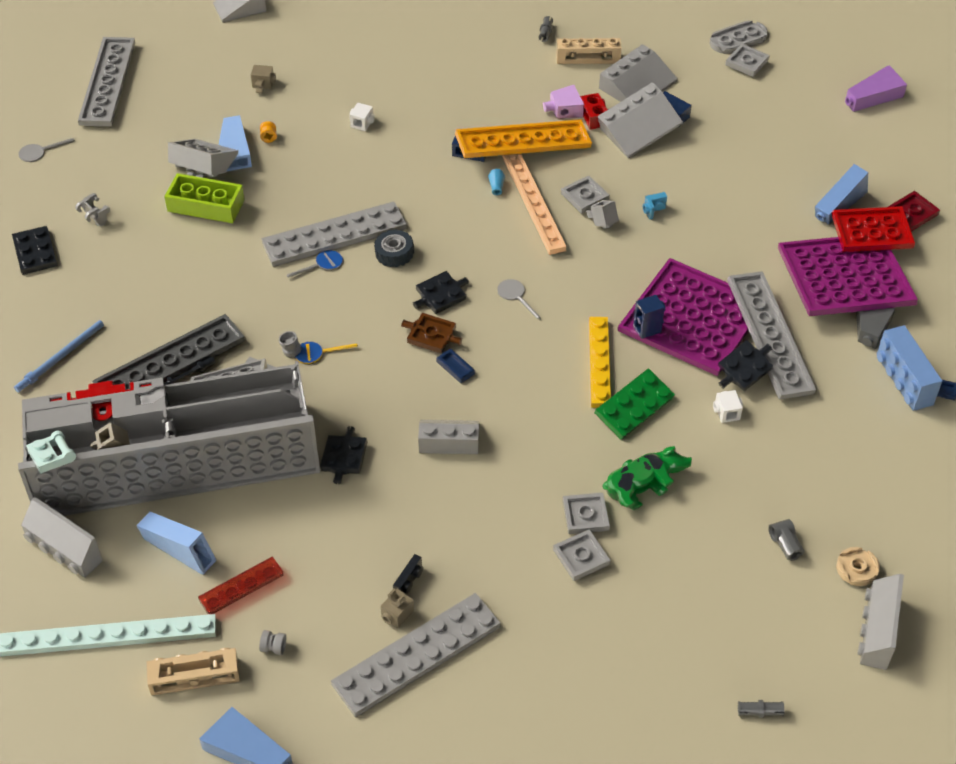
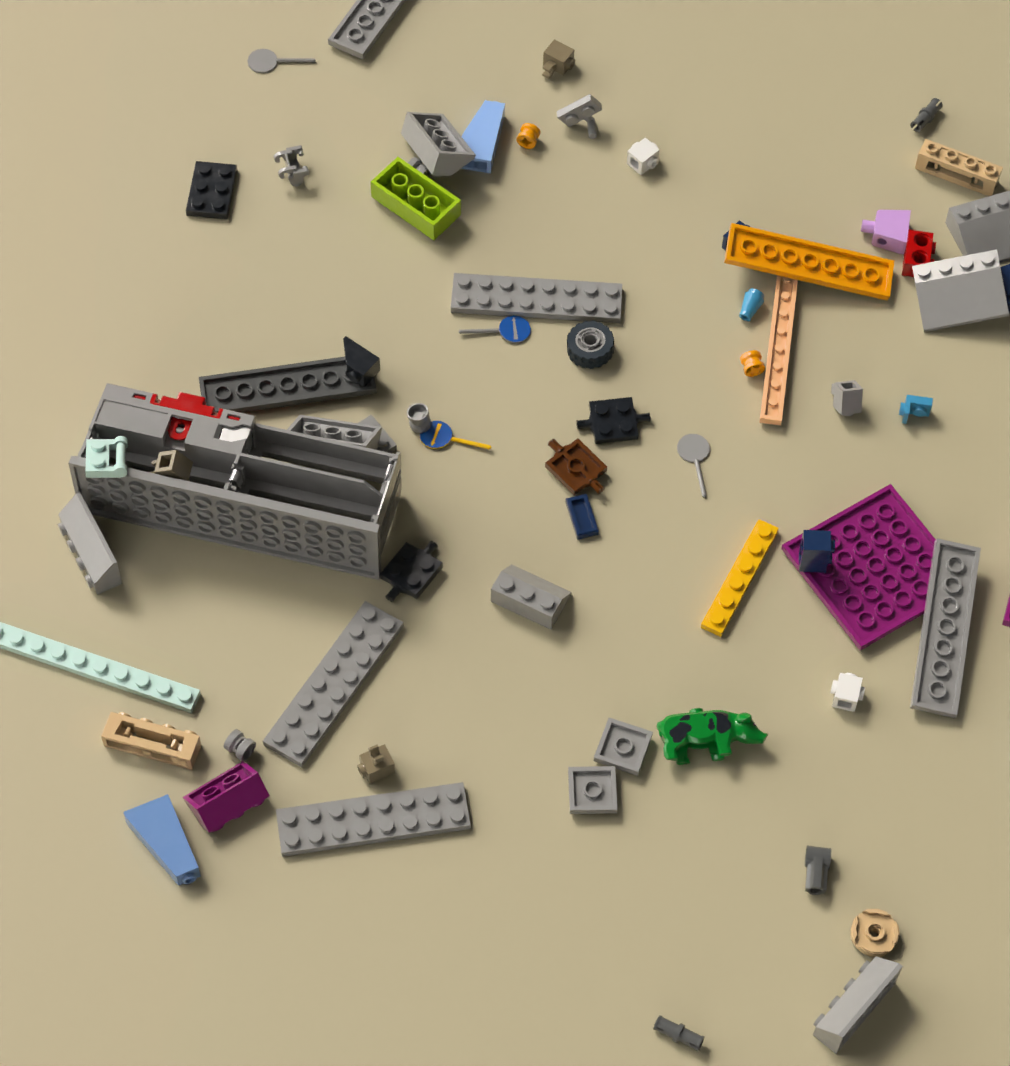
camera: 25 degrees right, 10 degrees up
(32, 377) = (142, 346): medium blue bar -> none
(178, 541) = (199, 597): light blue slope -> none
(200, 366) = (316, 405): black piece -> none
(222, 321) = (360, 362): none -> black slope
(240, 586) = (238, 671): clear red plate -> none
(283, 688) = (227, 797): none -> magenta slope
(299, 102) = (581, 110): none -> light grey plate
(325, 565) = (333, 684): none -> light grey plate
(409, 574) = (411, 731): black plate -> none
(521, 217) = (752, 363): none -> light orange wheel
(584, 194) = (843, 361): light grey plate -> none
(634, 404) = (747, 644): green plate -> none
(745, 365) = (892, 653): black plate -> none

